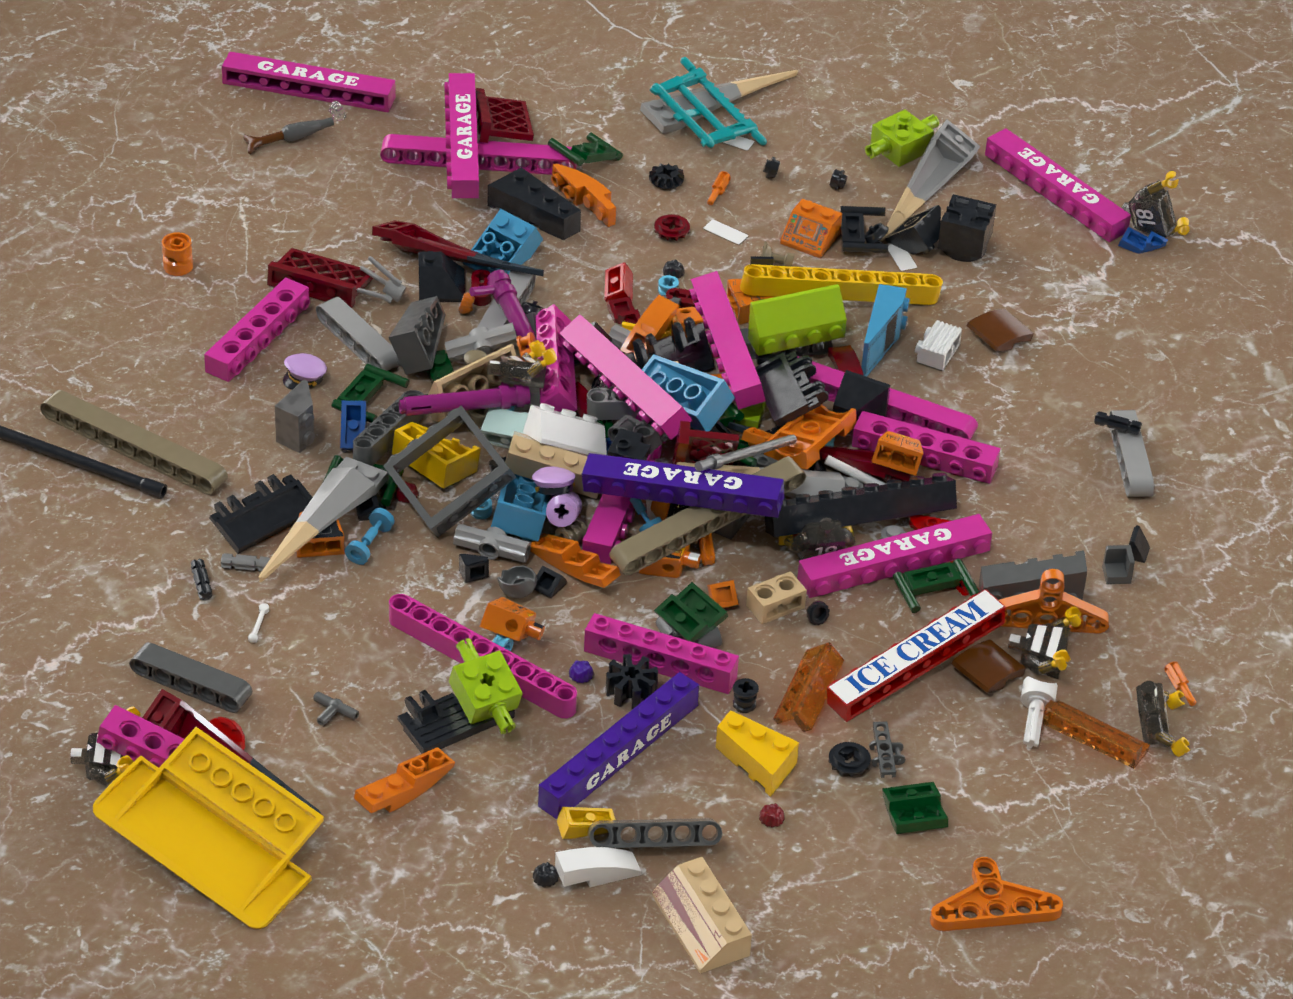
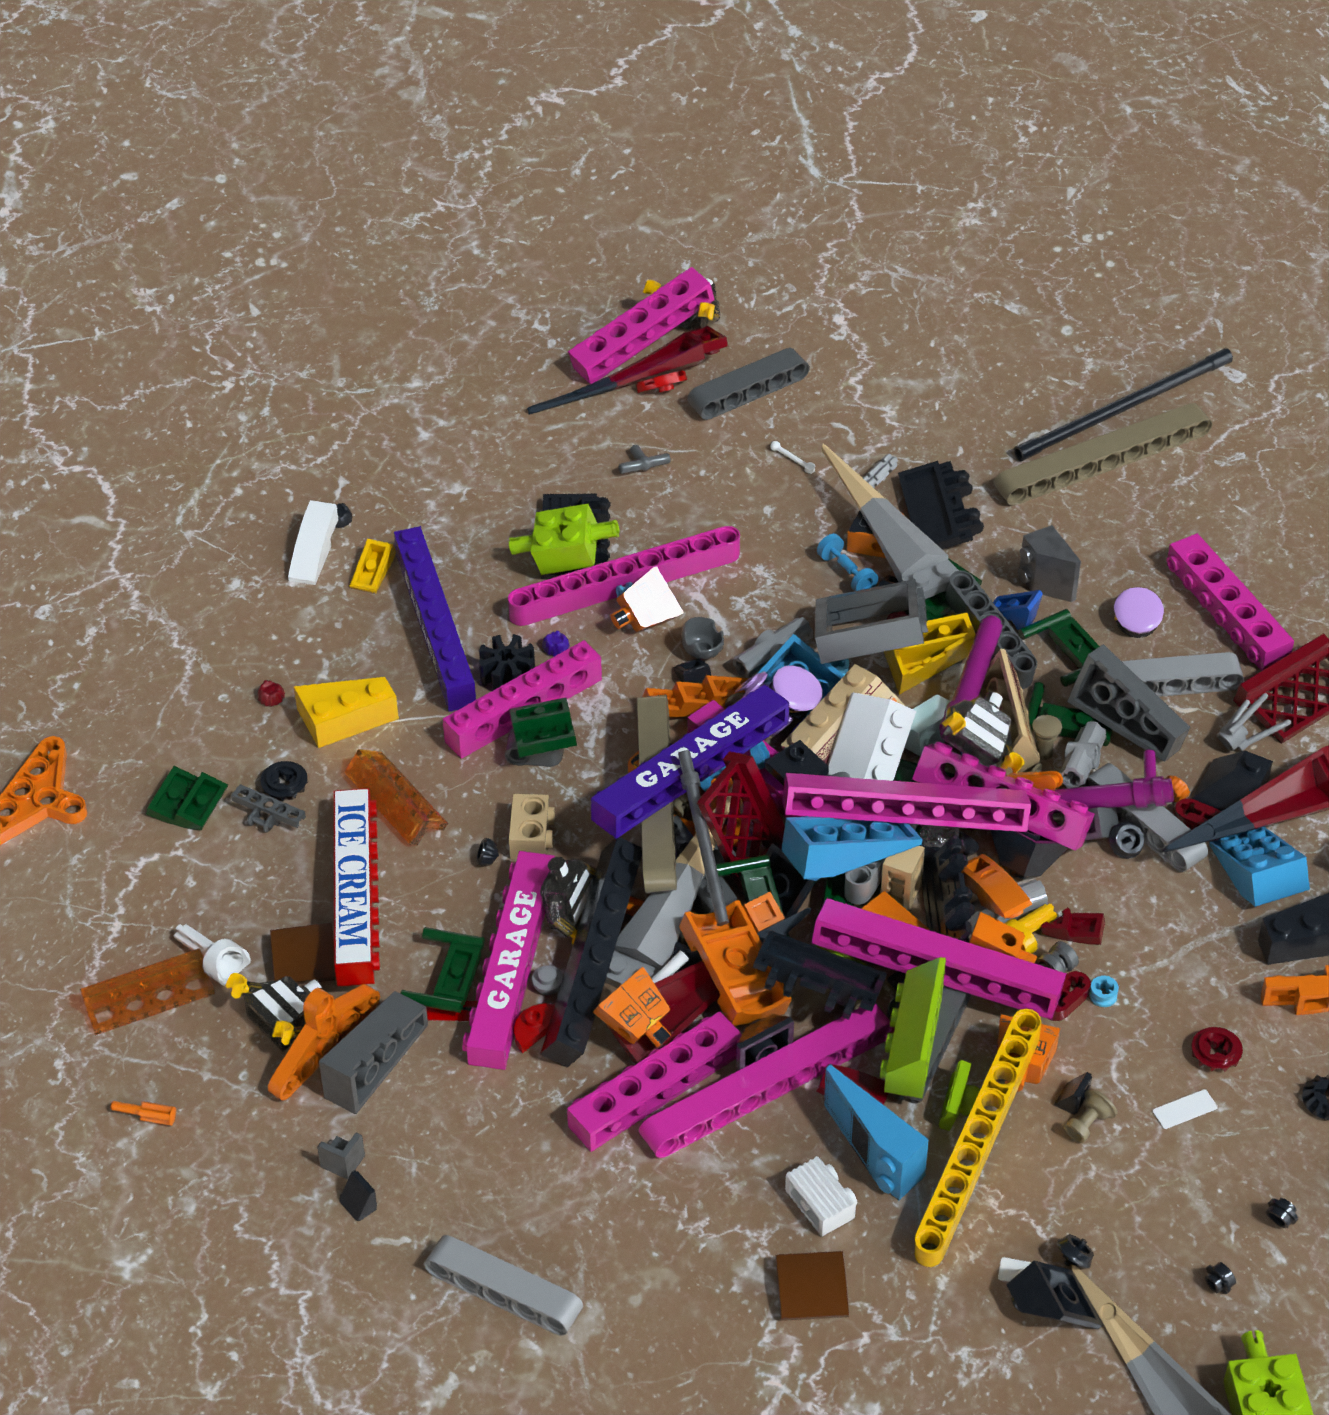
camera: 125 degrees right, 5 degrees up
(201, 579) = (876, 437): black axle -> none
(215, 826) = (546, 321): yellow slope -> none
(409, 782) = (510, 460): orange slope -> none
(473, 567) = (749, 617): black slope -> none
(618, 282) = (1136, 949): red slope -> none
(667, 838) = (310, 592): dark grey beam -> none
(673, 268) = (1134, 1013): black piece -> none
(702, 916) = (197, 590): tan slope -> none
(719, 186) = (1275, 1139): orange axle -> none
(723, 593) = (567, 787): orange plate -> none
(745, 695) = (420, 736): black bush -> none
(812, 228) = (1127, 1189): orange slope -> none
(853, 229) = (1101, 1235): black plate -> none
(966, 228) = (1010, 1338): black piece -> none
(1118, 423) = (540, 1273): black axle -> none
(1154, 716) = (115, 1040): clear smoke torso -> none

